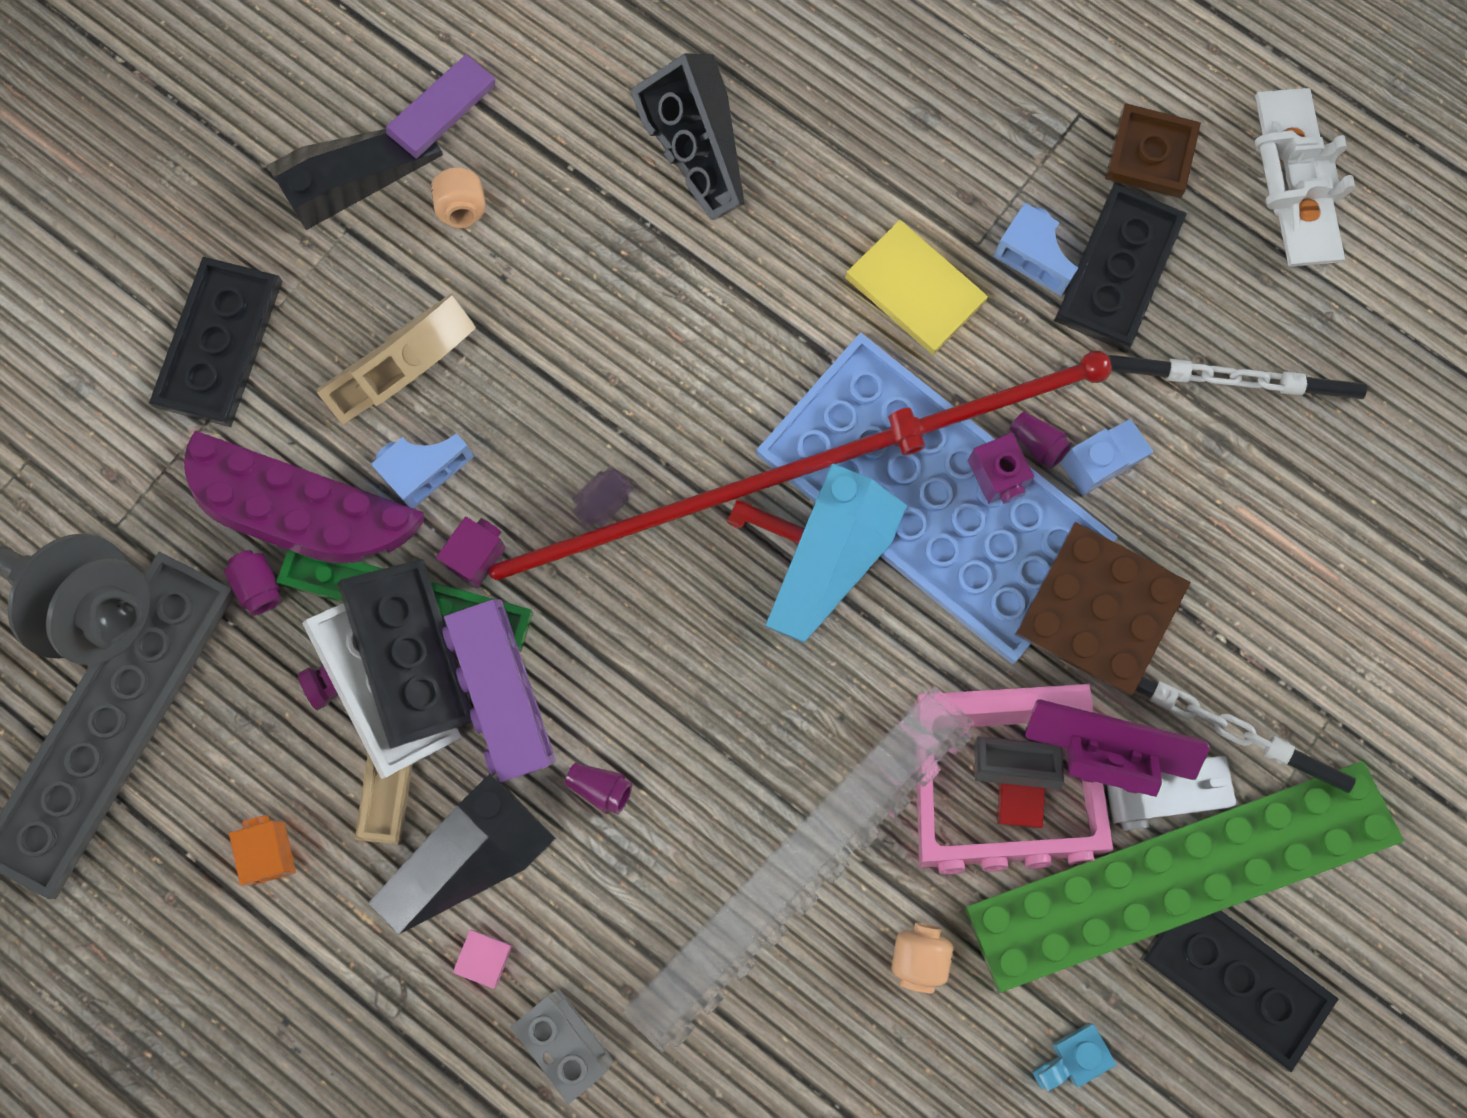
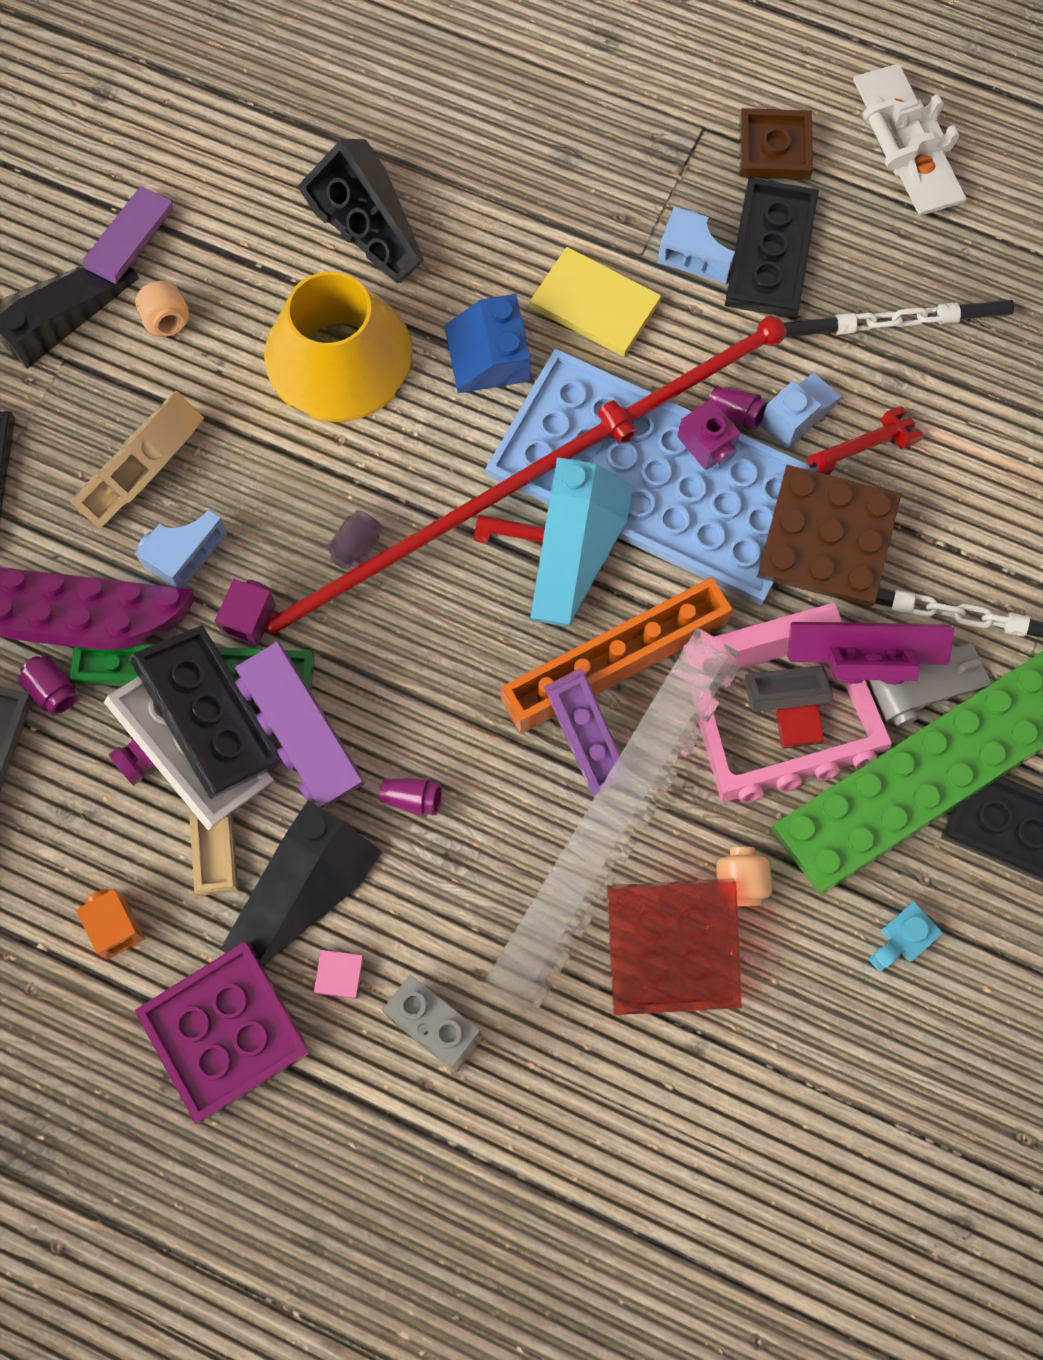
camera: 10 degrees left, 5 degrees down
(350, 994) = (222, 1032): none -> magenta plate
(636, 319) = (341, 377): none -> yellow cone
(791, 313) = (488, 345): none -> blue slope
(793, 761) = (584, 727): none -> medium lavender tile
(831, 1016) = (674, 946): none -> clear red plate
(846, 687) = (620, 651): none -> orange brick
(1200, 502) = (892, 429): none -> red hinge

